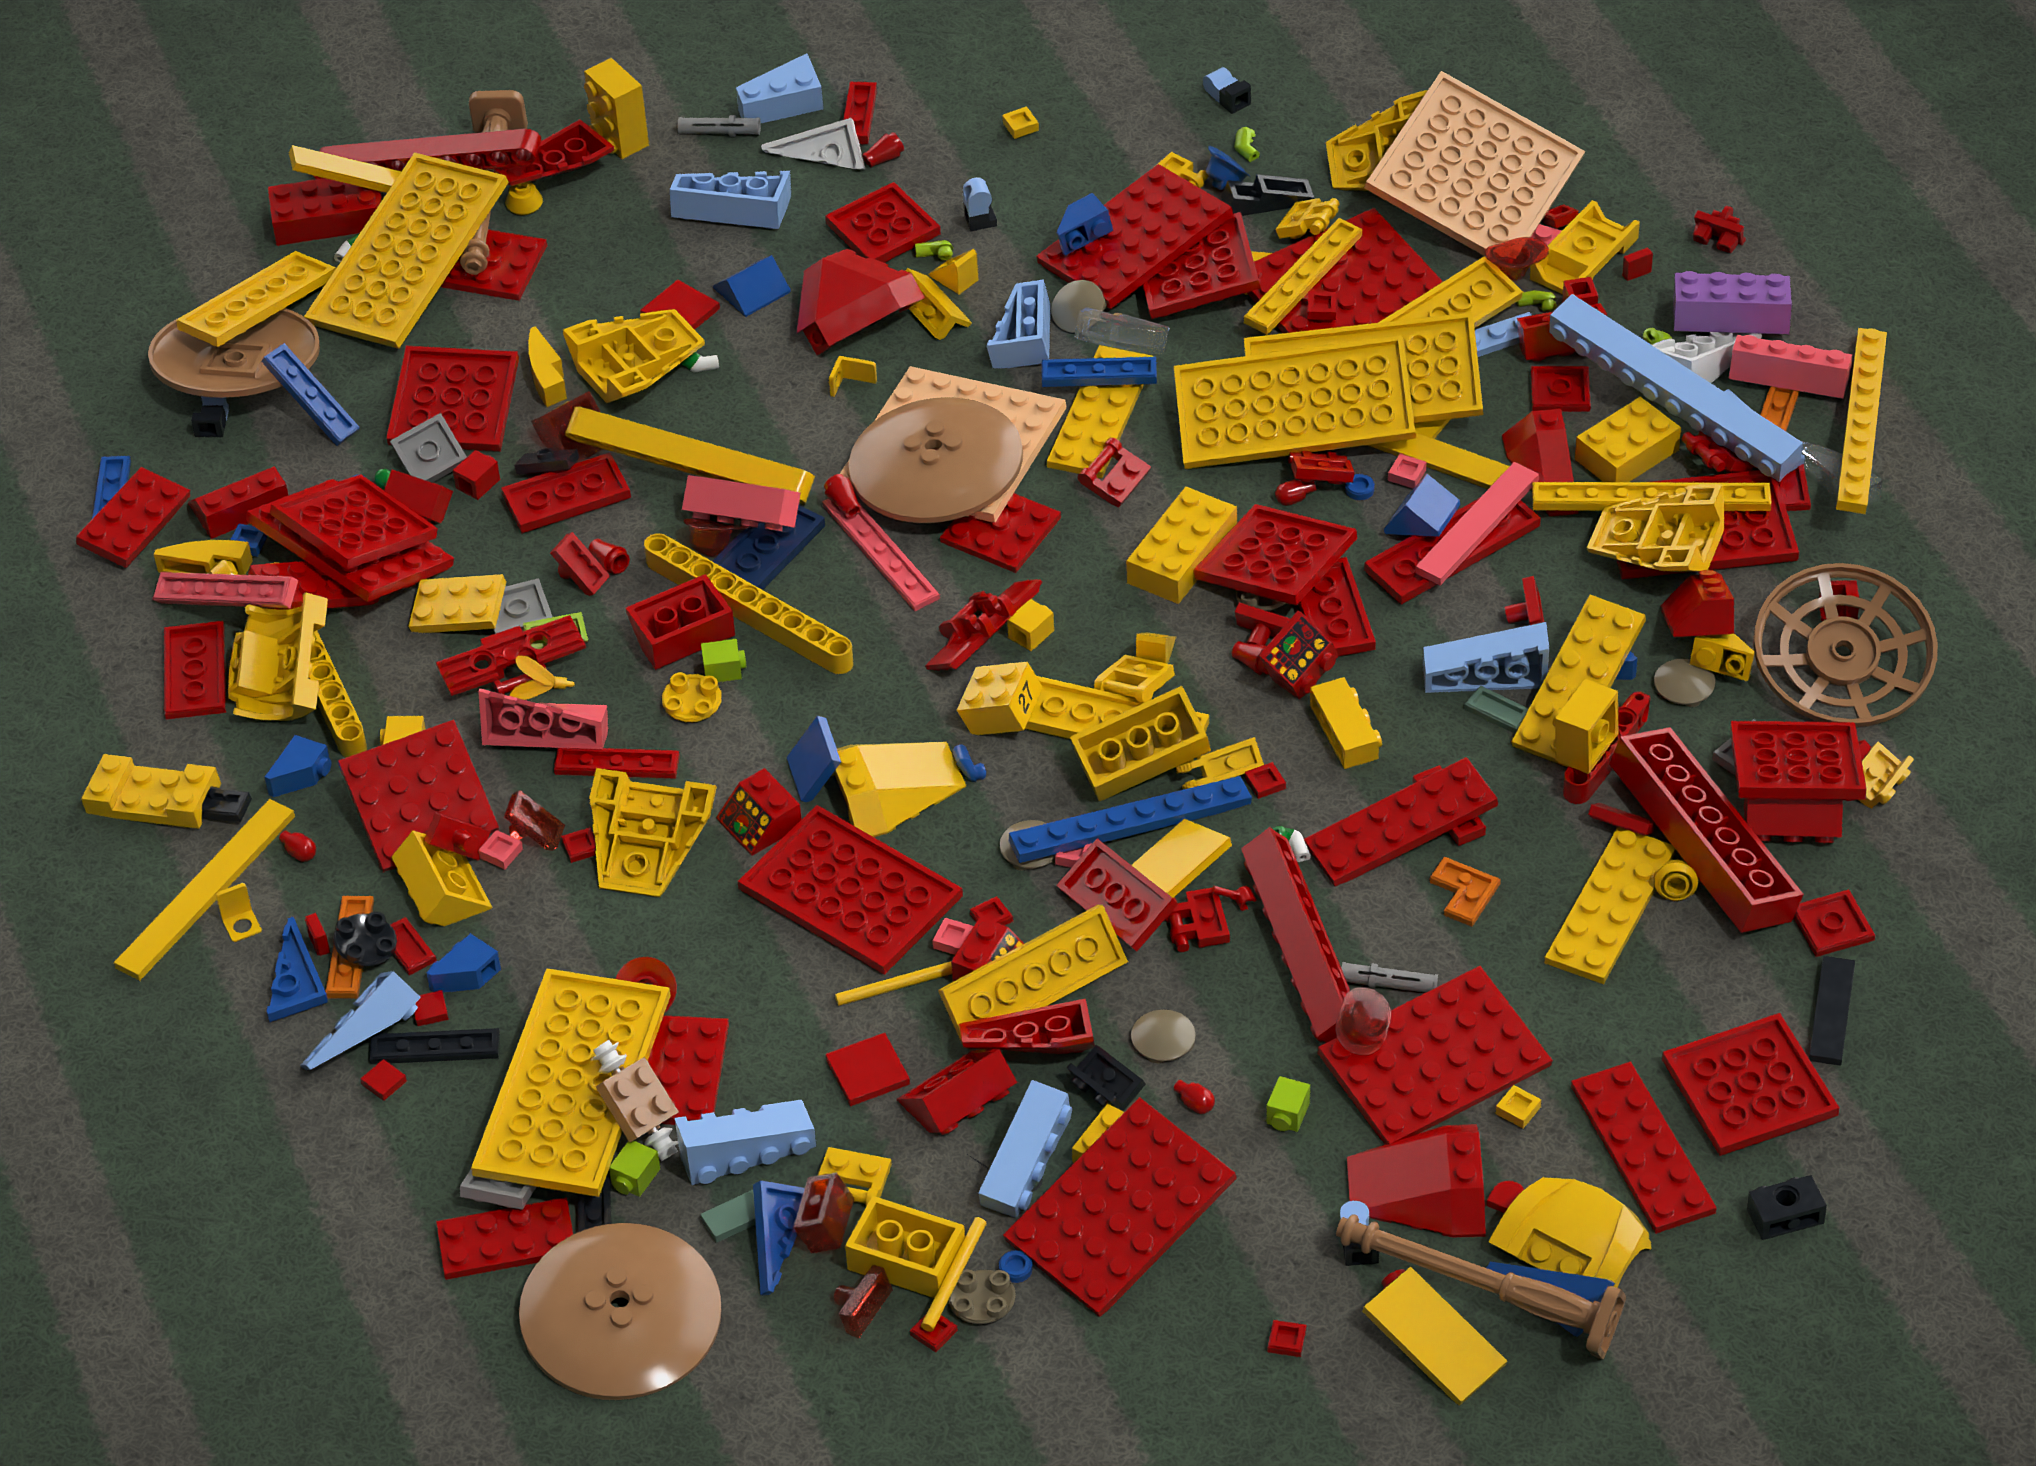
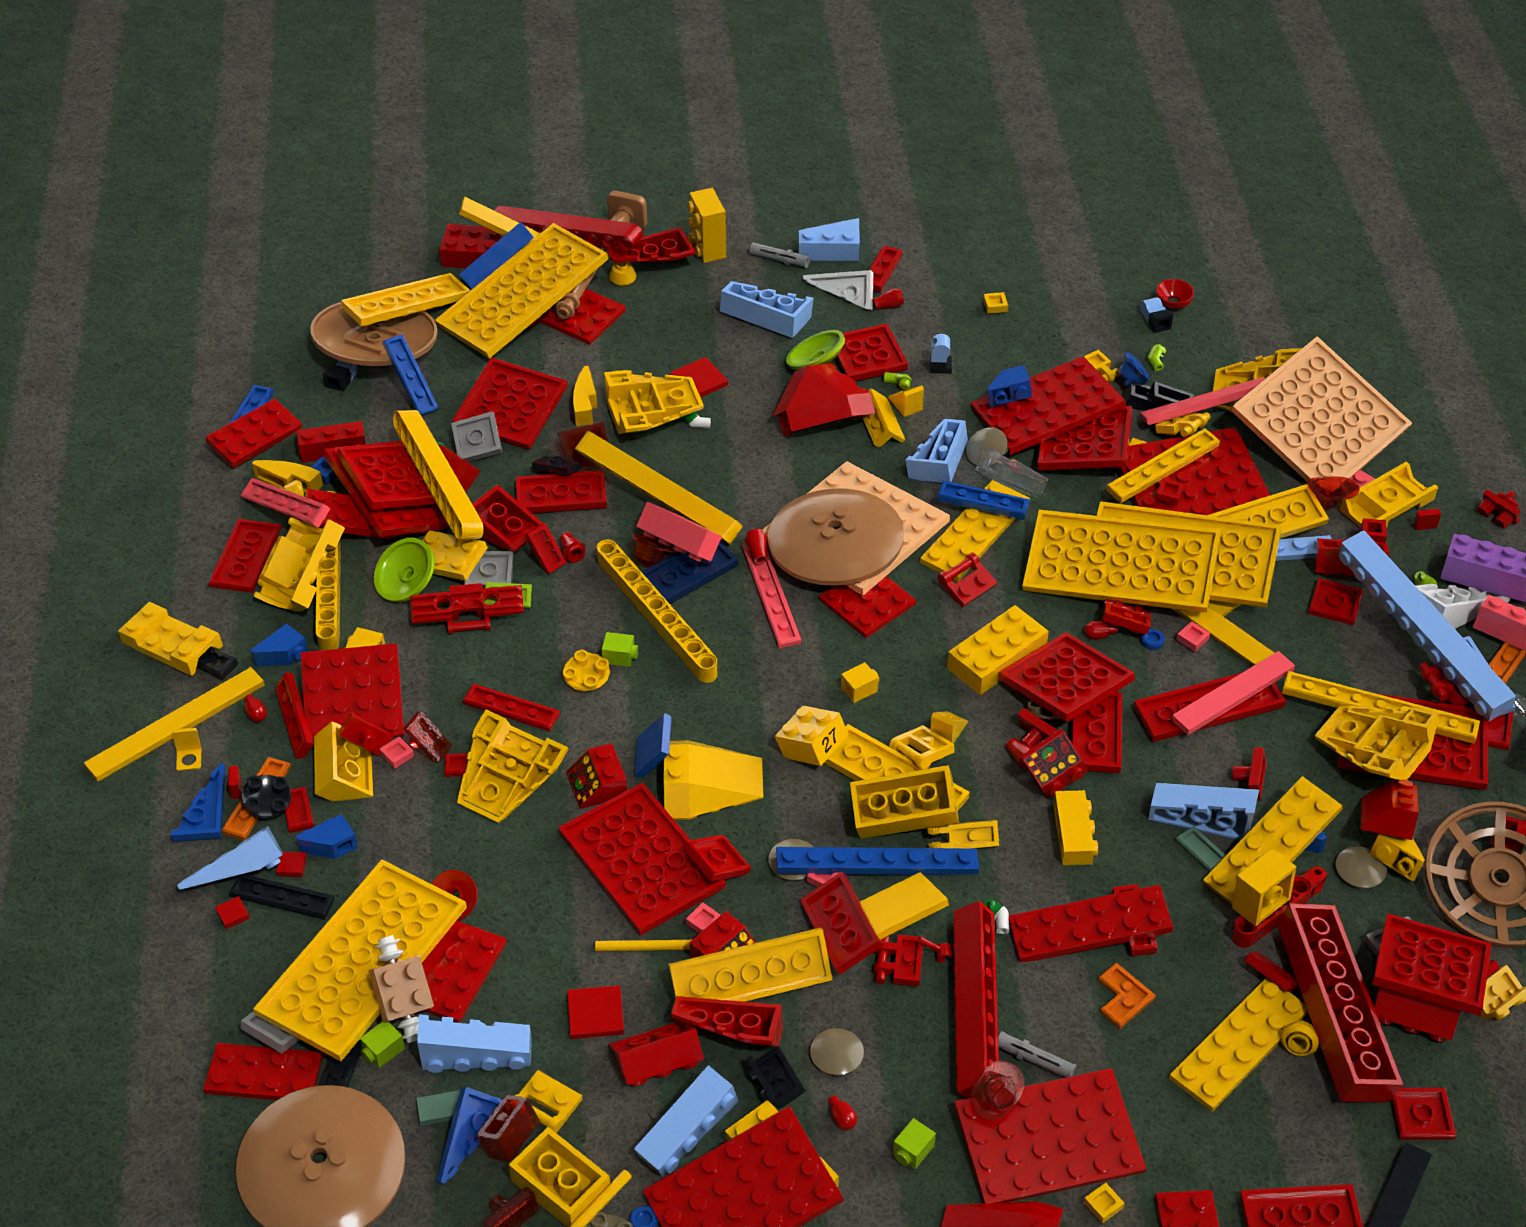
camera: 15 degrees right, 0 degrees up
(353, 840) = (294, 716): none -> red tile
(354, 213) = (496, 255): none -> blue tile
(404, 625) = (404, 569): none -> lime dish
(408, 506) = (438, 475): none -> yellow beam
(476, 474) = (503, 462): red brick -> none
(508, 544) = (504, 519): none -> red slope
(532, 724) = (466, 662): coral wedge -> none
(542, 681) = (482, 630): yellow piece -> none
(680, 620) = (600, 609): red slope -> none
(754, 286) = (757, 375): blue slope -> none
(818, 236) = (816, 350): none -> lime dish
(851, 369) = (801, 452): yellow bracket -> none
(941, 864) = (717, 858): none -> red tile
(964, 762) = (768, 781): blue arm -> none
(969, 632) = (810, 676): red piece -> none
(992, 910) = (742, 908): red tile -> none
(1242, 52) = (1175, 289): none -> red piece
(1265, 780) = (995, 857): red tile -> none
(1321, 187) = (1199, 402): none -> coral tile
(1424, 510) = (1195, 671): slope -> none
(1535, 297) = (1339, 525): lime arm -> none
(1541, 446) = (1304, 644): red wedge -> none
(1559, 216) = (1377, 467): red tile -> none
(1628, 442) = (1375, 658): yellow brick -> none

